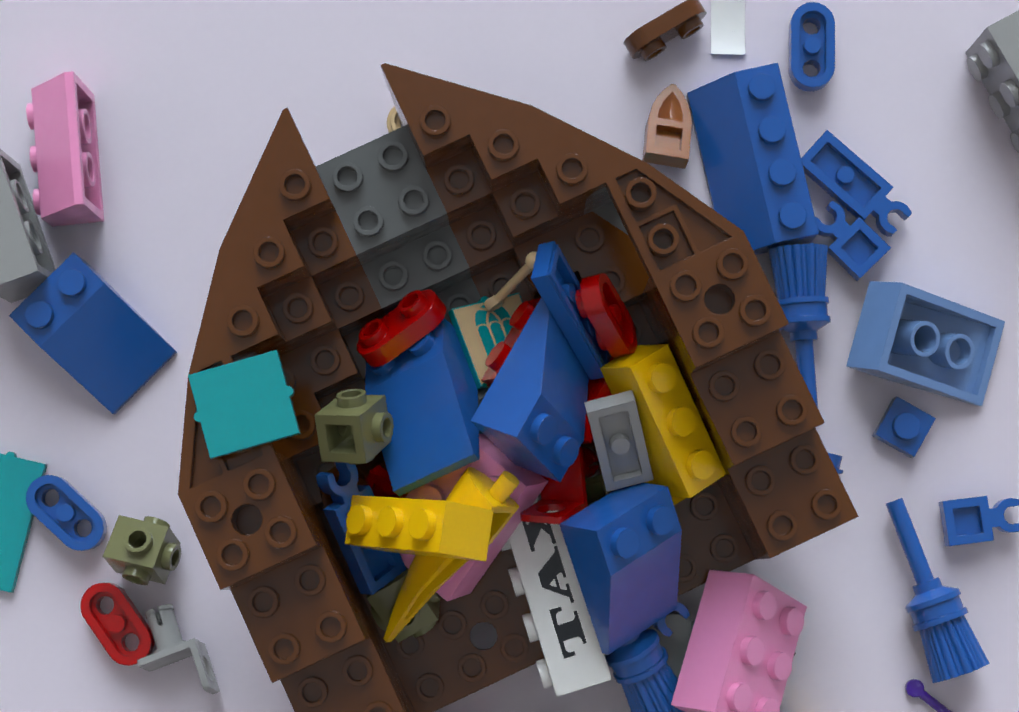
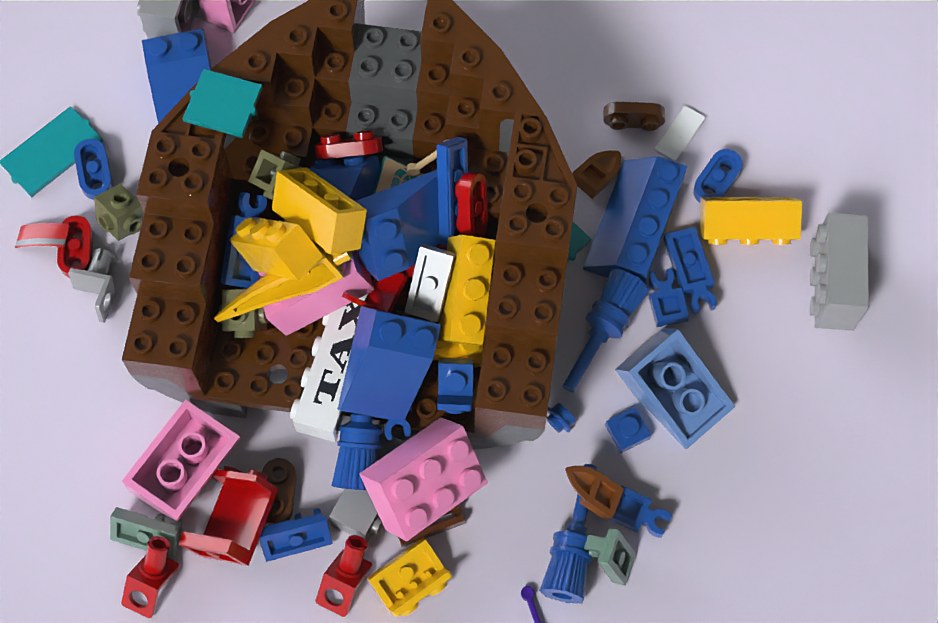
camera: 30 degrees right, 15 degrees down
(67, 635) = (42, 235): none -> sticker
(447, 455) = (319, 209): none -> yellow brick
(709, 528) = (455, 385): none -> blue bracket
(886, 79) = (750, 219): none -> yellow brick
(926, 532) = (595, 489): none -> dark orange plate
(990, 593) = (613, 555): none -> sand green plate

